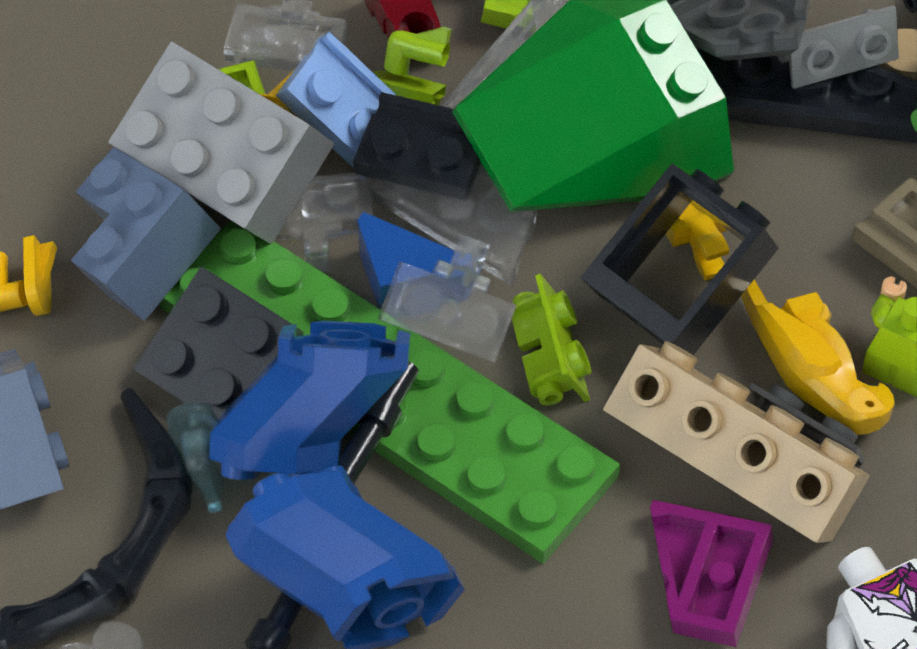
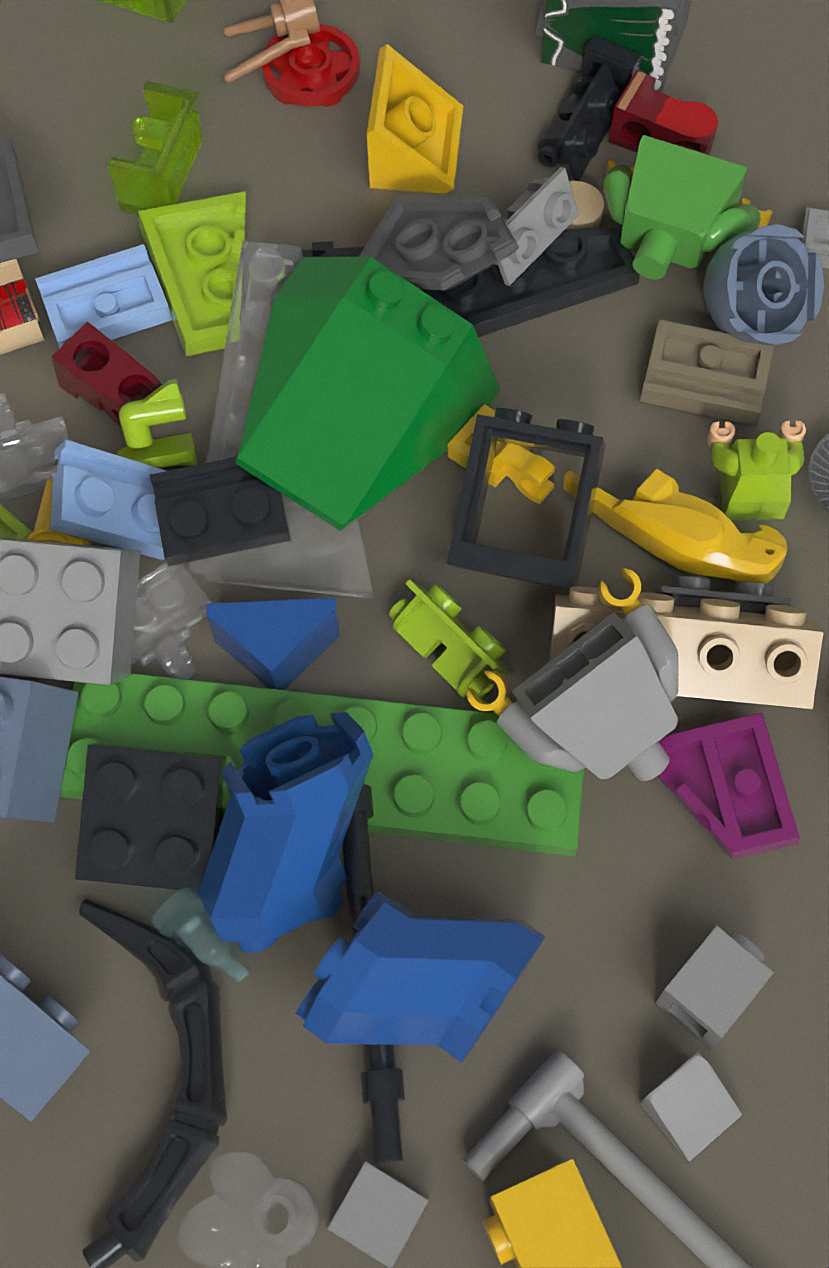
camera: 30 degrees left, 10 degrees up
(450, 302) = (344, 652): clear hinge -> none
(627, 429) = (599, 698): none -> light grey torso

